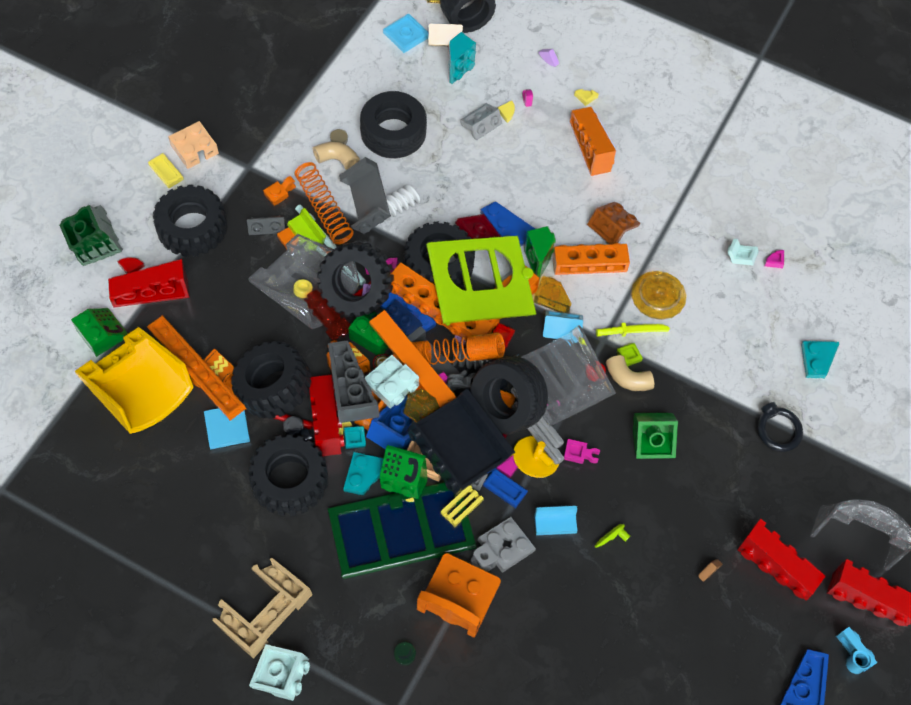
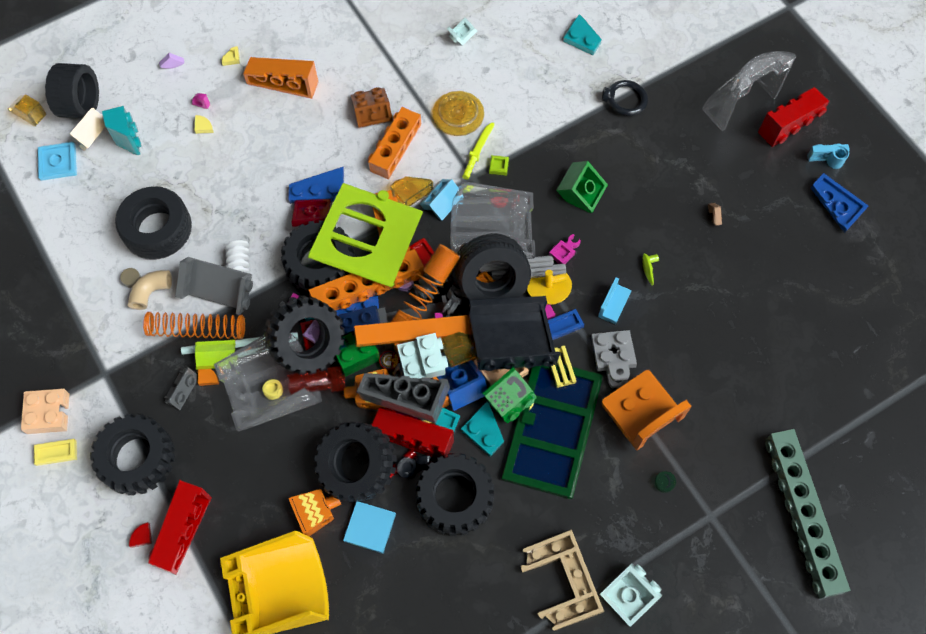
camera: 55 degrees left, 5 degrees up
(90, 235) = (82, 559): dark green slope -> none
(99, 329) = (195, 598): green slope -> none
(197, 368) = (303, 522): orange tile -> none
(278, 192) = (153, 360): orange plate -> none
(482, 120) = (198, 149): light grey bracket -> none
(539, 249) = (364, 174): green slope -> none
(627, 378) = (522, 177): tan cylinder -> none
(776, 259) = (480, 13): dark pink tile -> none
(781, 561) = (735, 161): red wedge -> none

